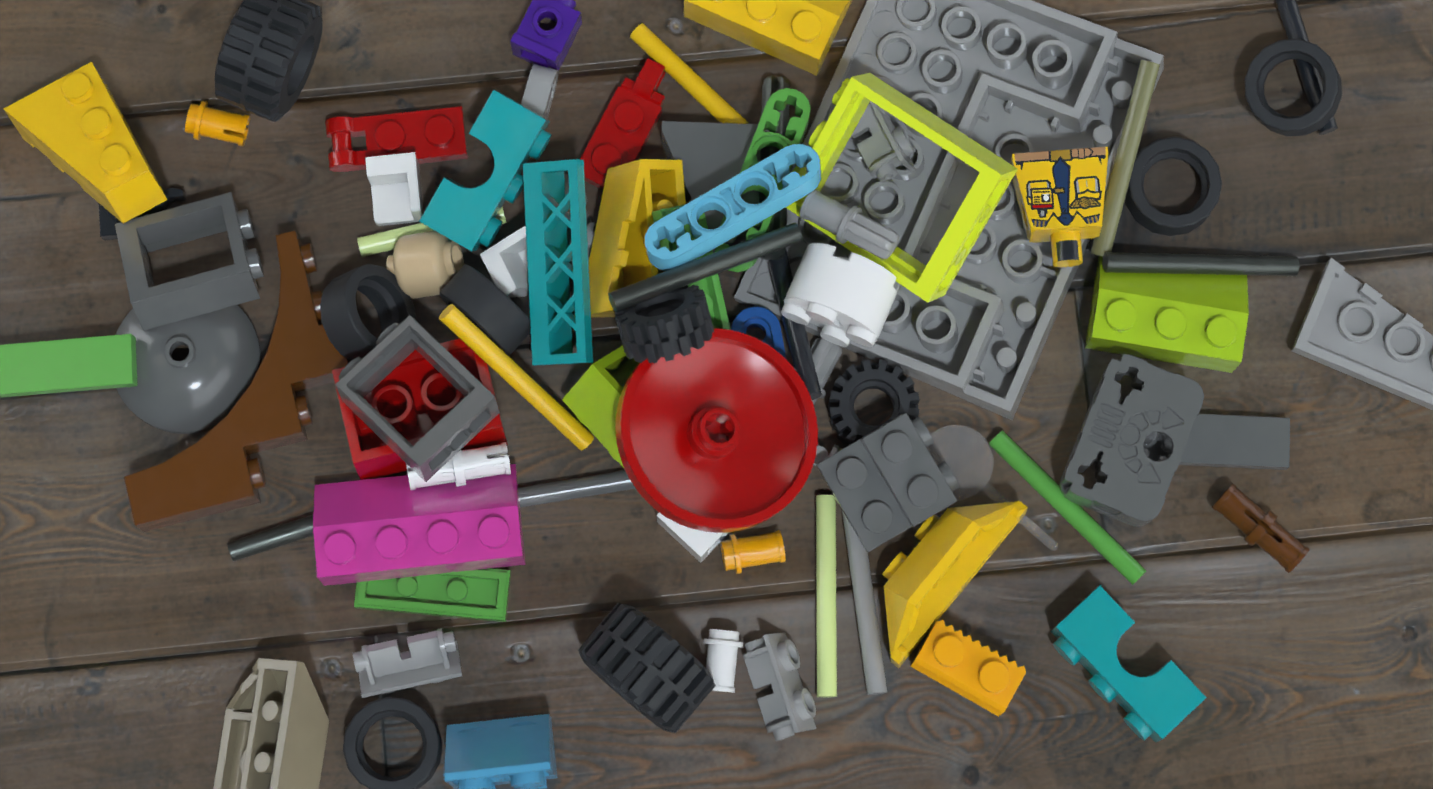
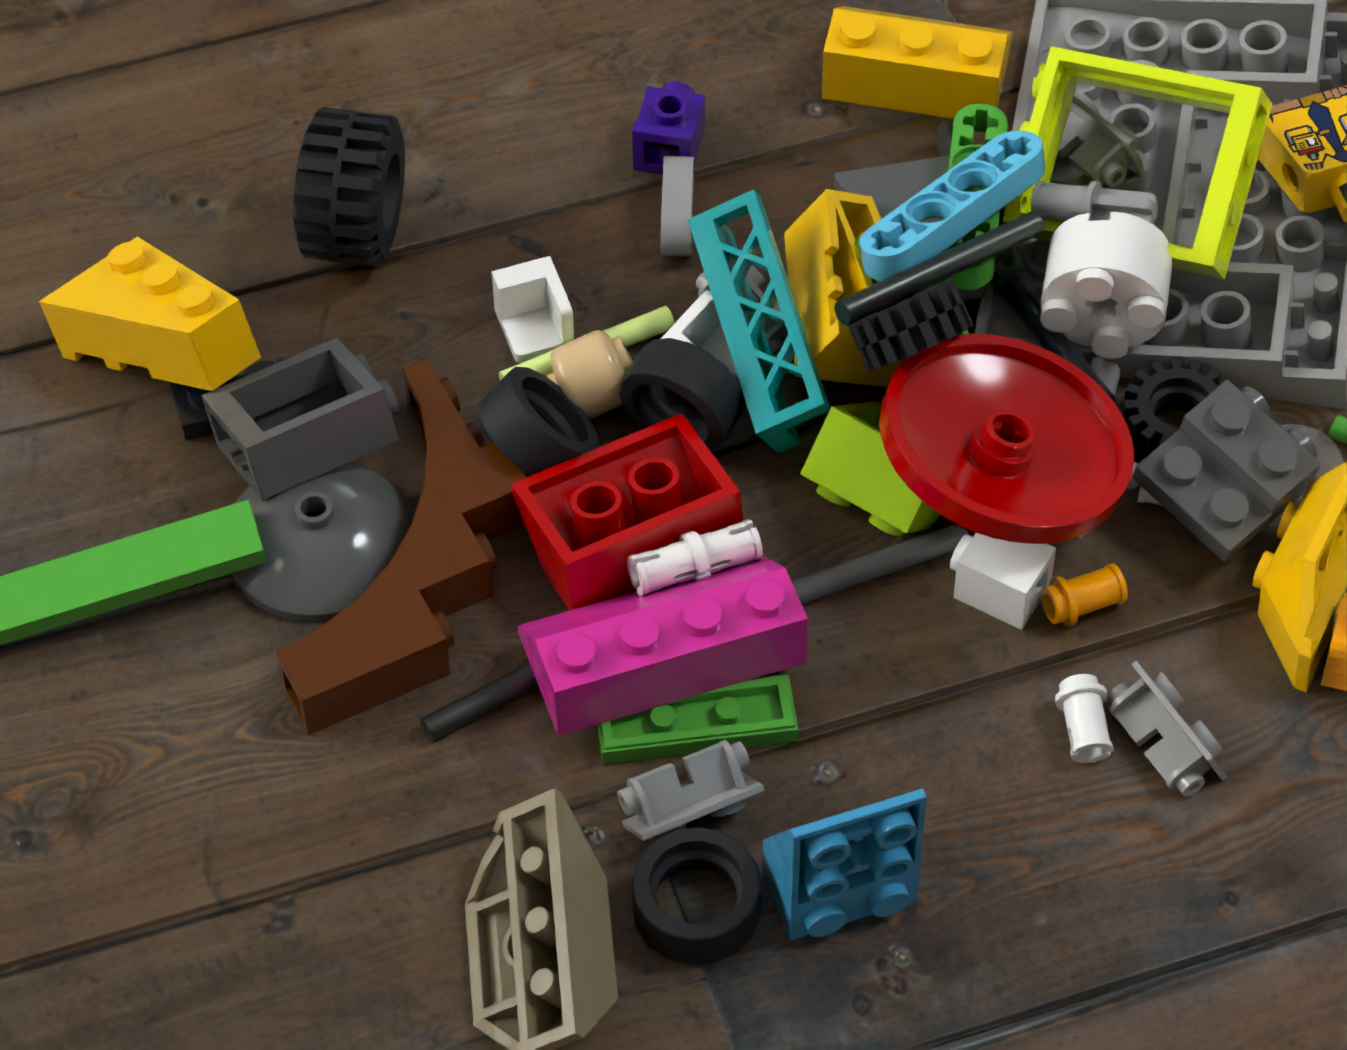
camera: 10 degrees left, 25 degrees down
(216, 124) = (294, 290): light orange pin -> none
(431, 134) = (572, 248): red plate -> none
(451, 431) = (659, 523): dark grey window -> none
(471, 213) = (634, 295): teal arch -> none
(516, 377) = (740, 451): yellow bar -> none
(625, 124) = (791, 187): red hinge -> none
(646, 667) = (1000, 717): black tyre -> none
(685, 76) = (826, 139): yellow bar -> none
(826, 596) = (1190, 630): yellowish green bar -> none
(865, 612) = (1239, 627): light grey bar -> none

